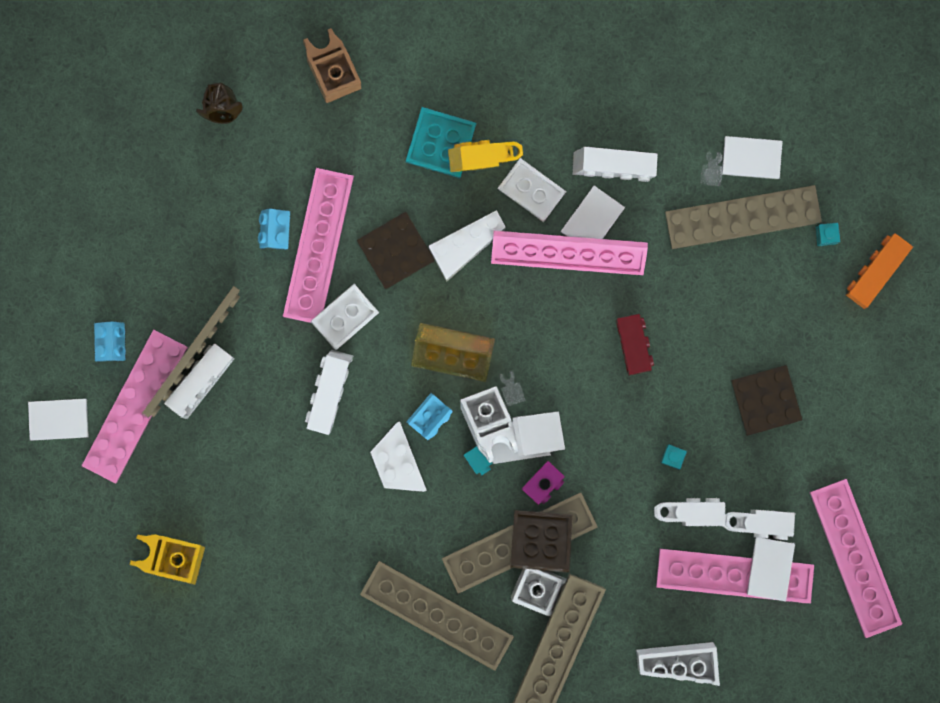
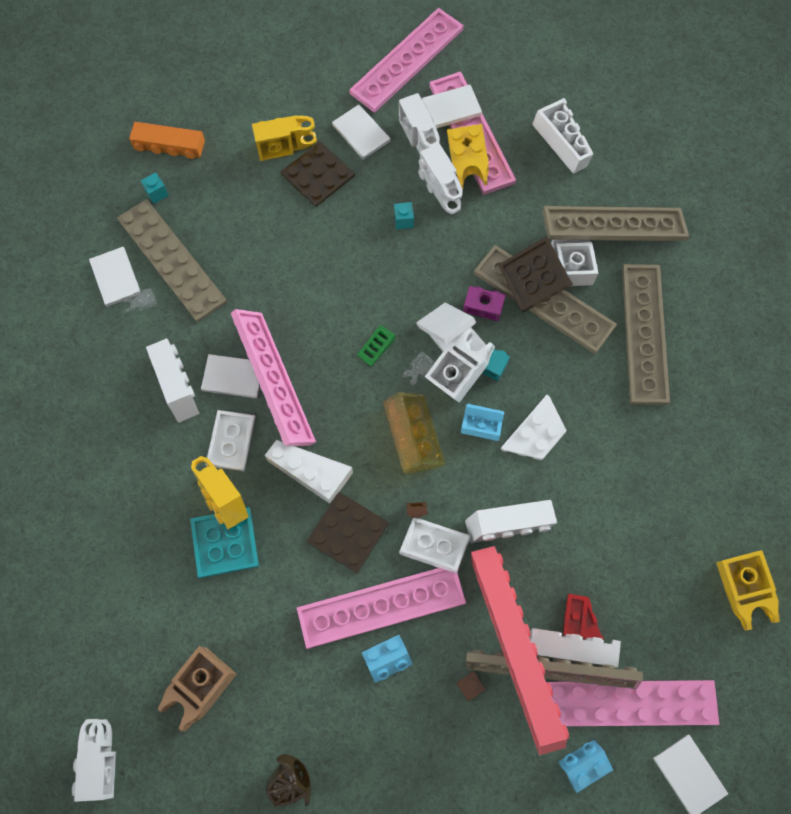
camera: 115 degrees left, 15 degrees down
(217, 285) = (470, 686): none -> reddish brown plate
(219, 403) = (580, 618): none -> red wing
(222, 330) = (519, 652): none -> coral brick
(383, 318) = (416, 509): none -> reddish brown plate
(554, 379) = (381, 349): none -> green slope
(634, 344) = (325, 289): dark red brick -> none
(695, 552) = (468, 152): none -> yellow brick
(793, 467) = (361, 132): none -> white tile
(820, 382) = (282, 136): none -> yellow brick

